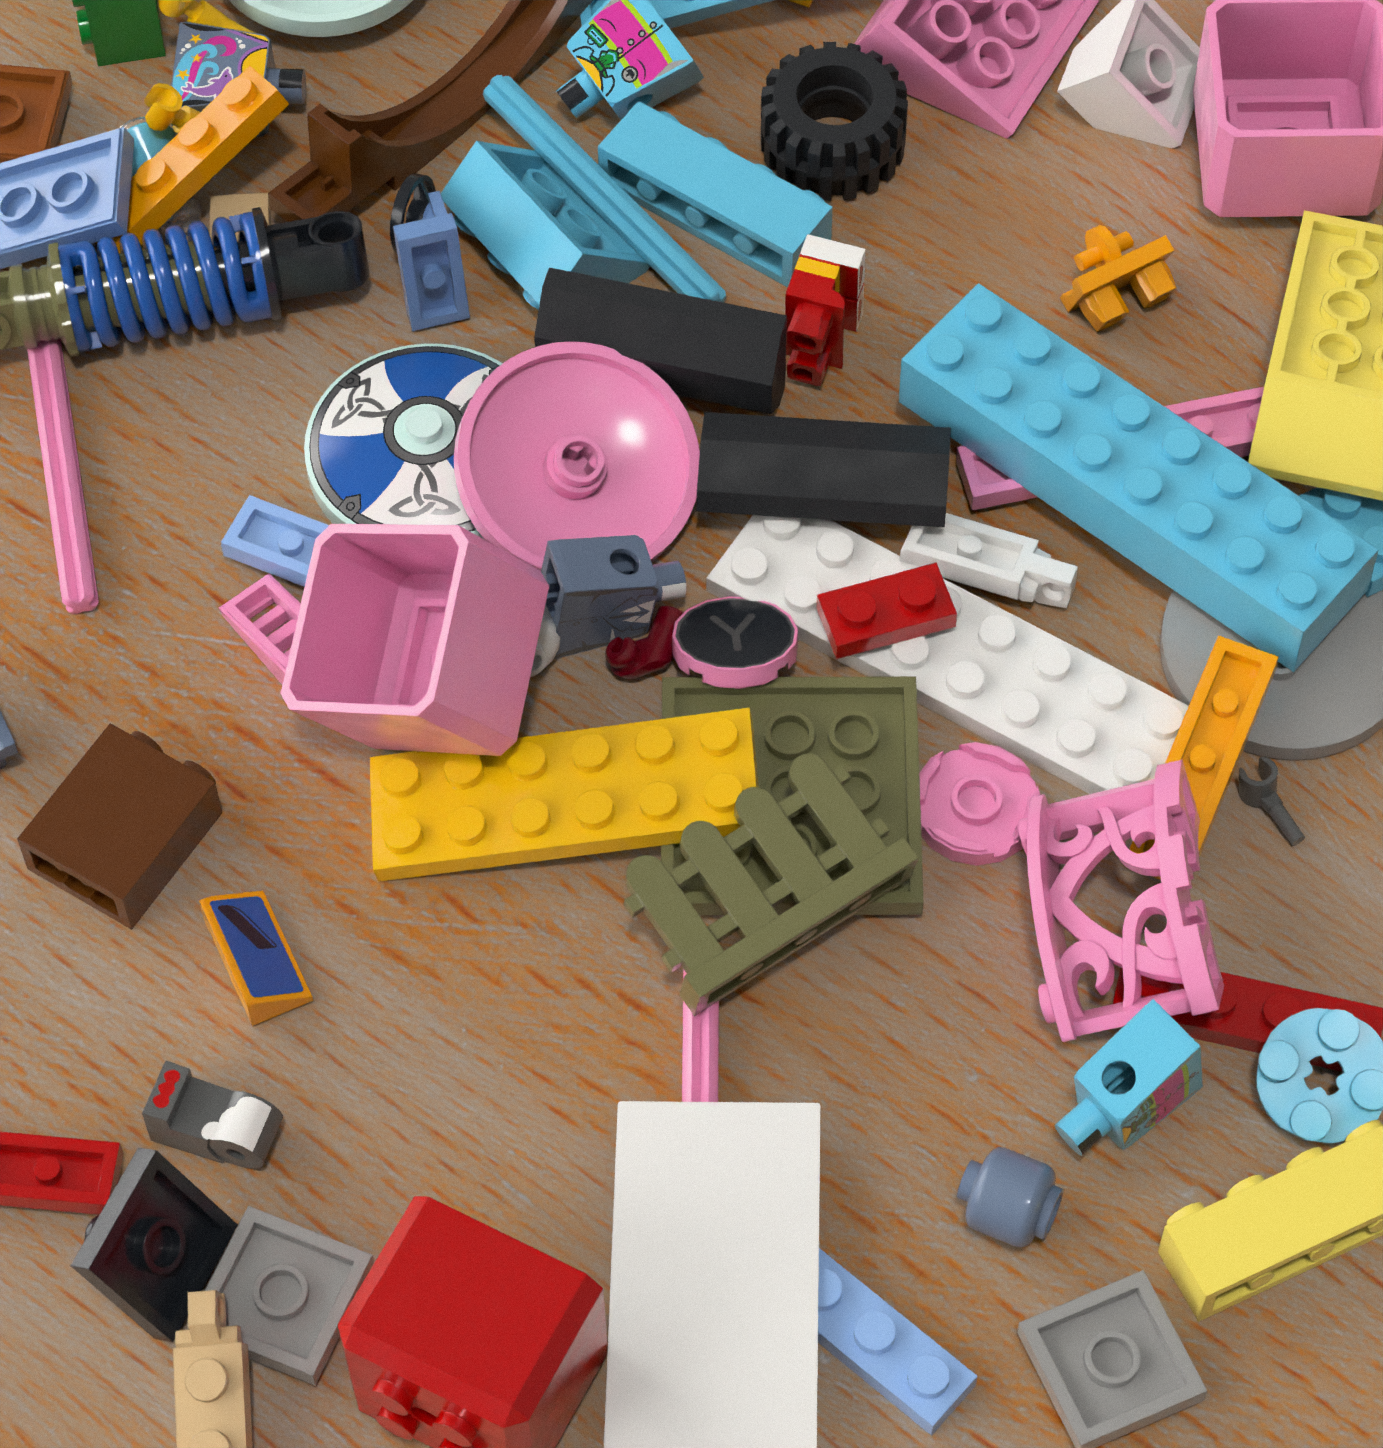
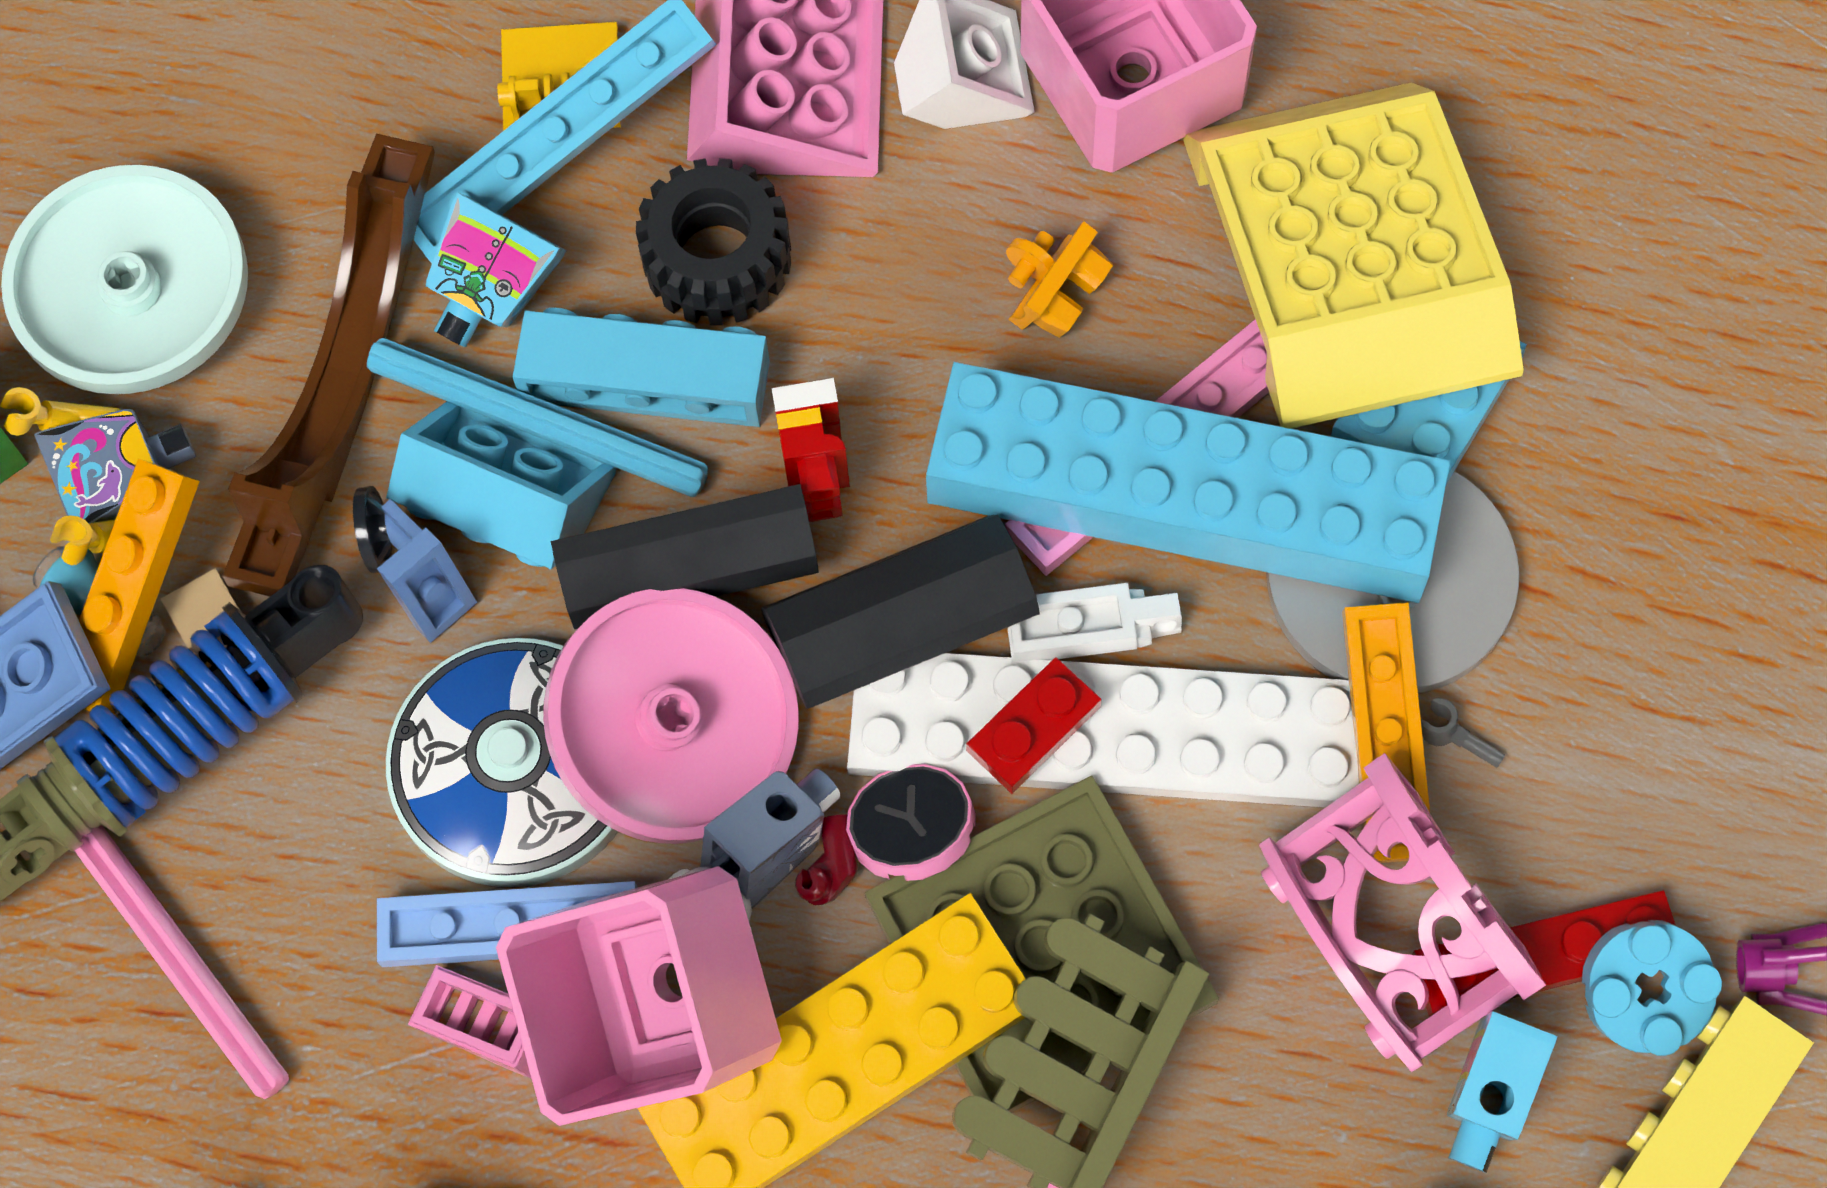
camera: 25 degrees left, 10 degrees up
(975, 803) = (1206, 867): bright pink tile -> none

